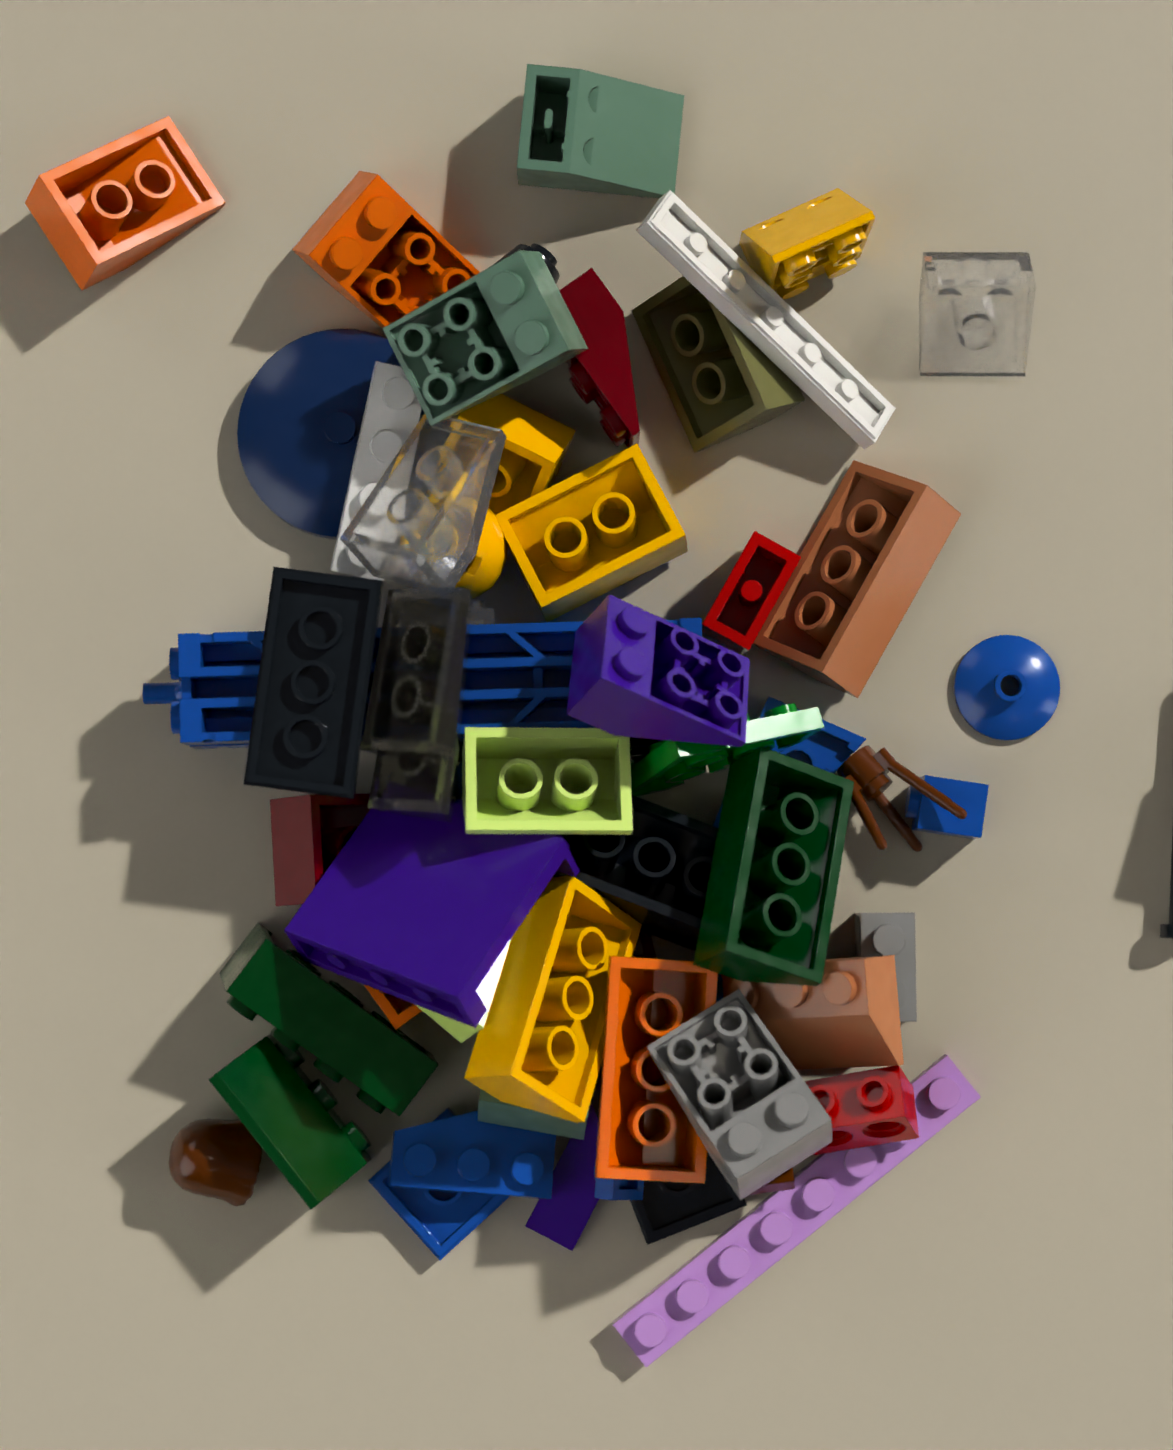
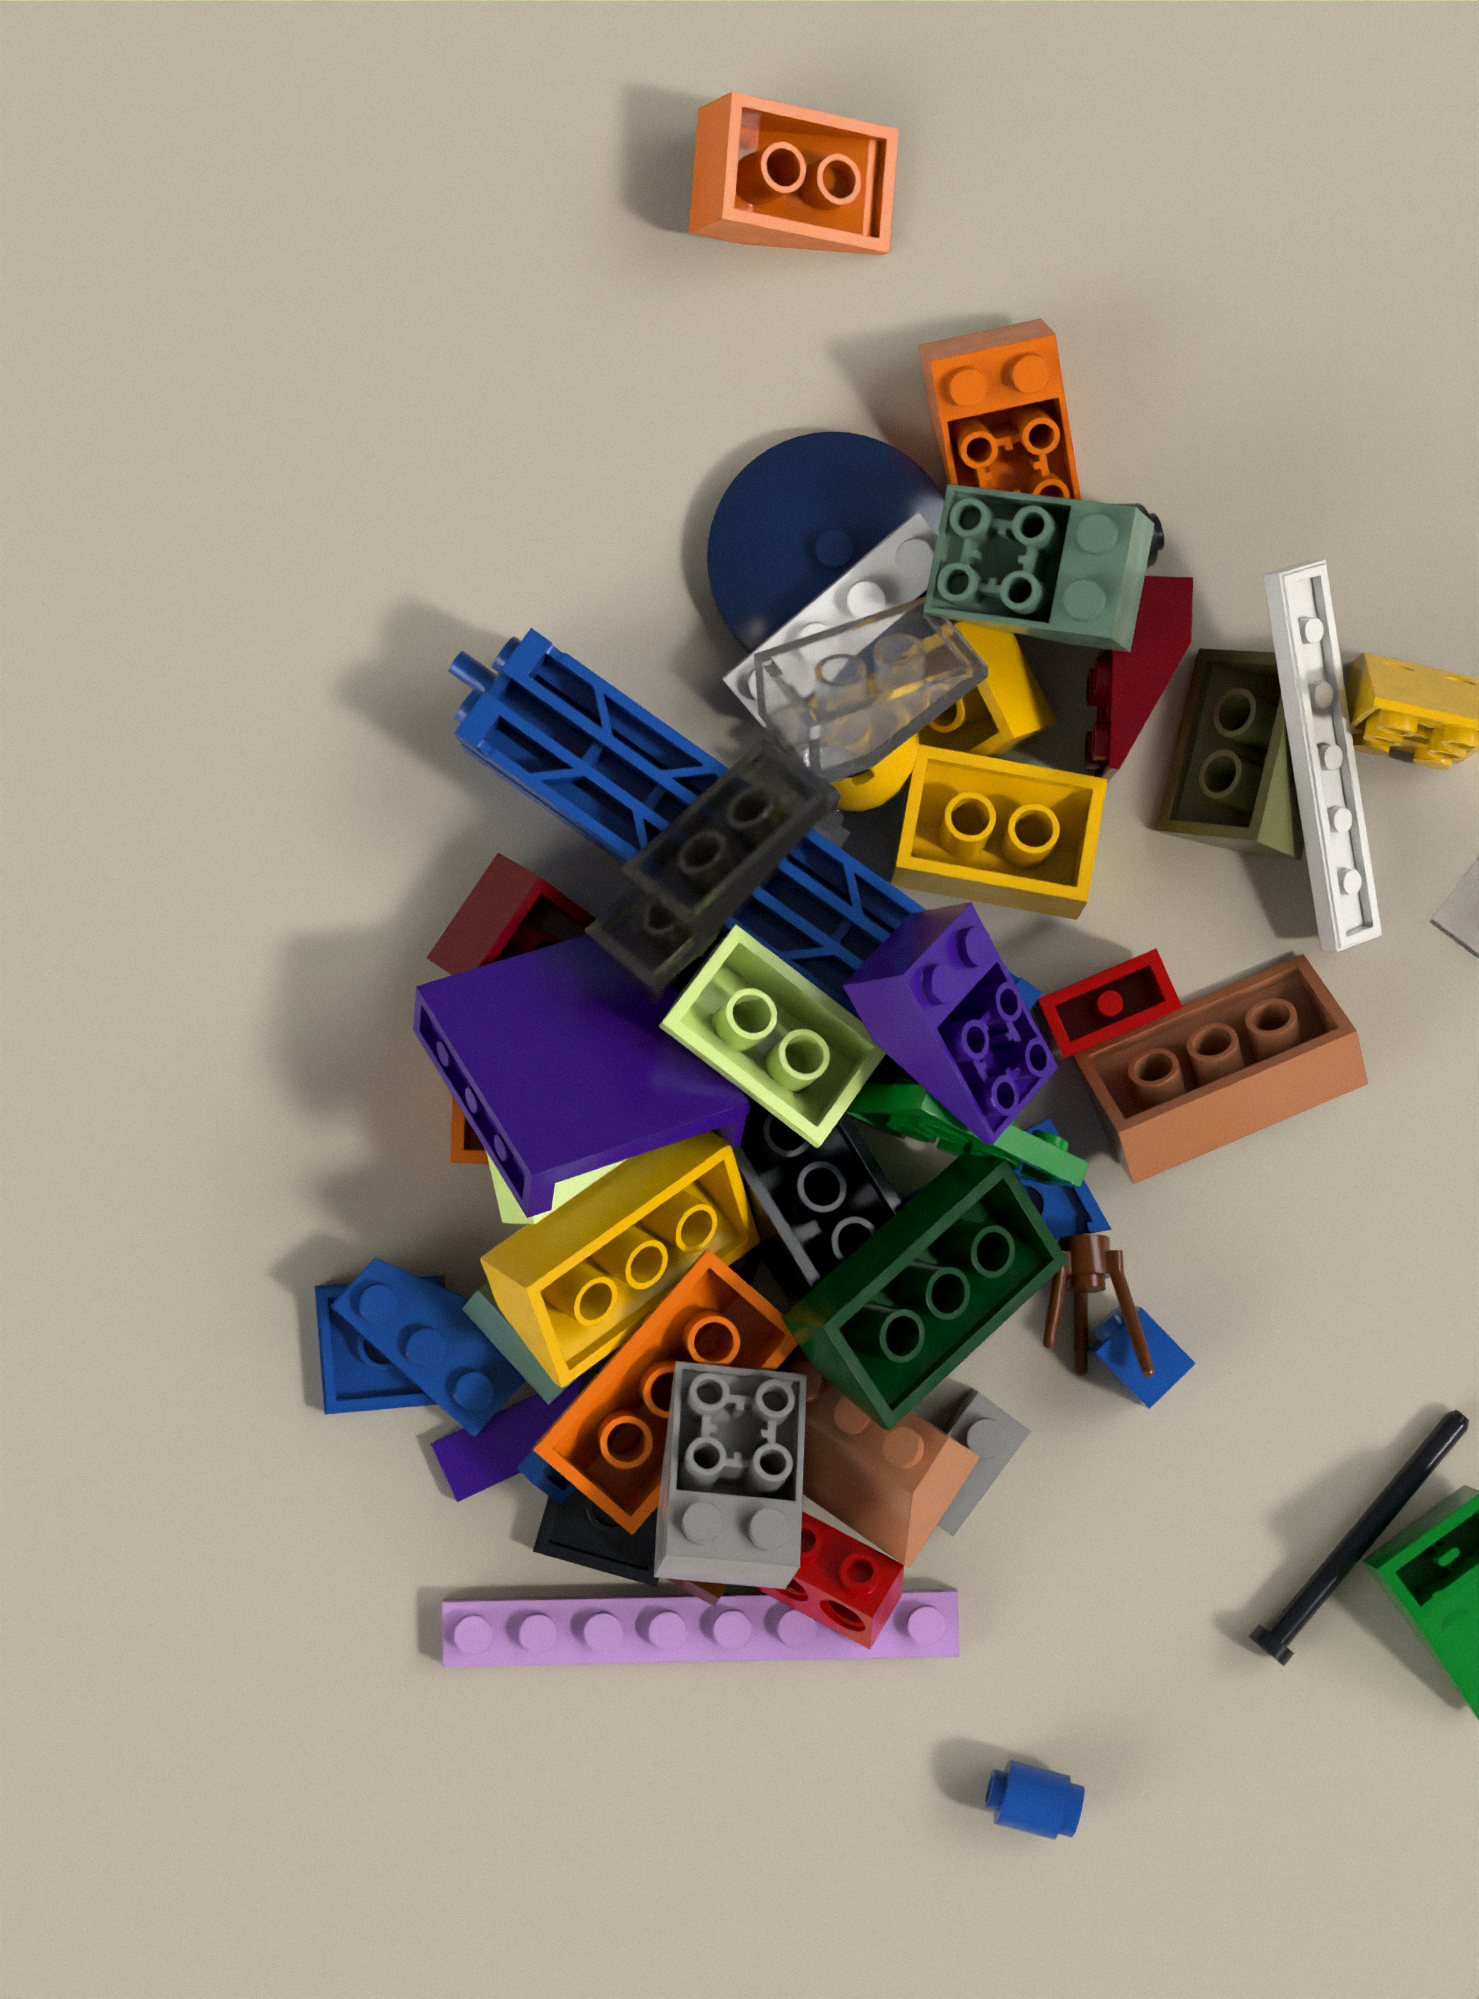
camera: 30 degrees right, 0 degrees up
(216, 1160) = (189, 1155): reddish brown hair -> none
(293, 1119) = (288, 1171): dark green slope -> none
(313, 682) = (624, 772): black tile -> none
(326, 1023) = (389, 1106): dark green wedge -> none
(597, 133) = (1296, 454): sand green slope -> none
(981, 697) = (1252, 1276): blue dish -> none
(1102, 1153) = (1034, 1800): none -> blue brick

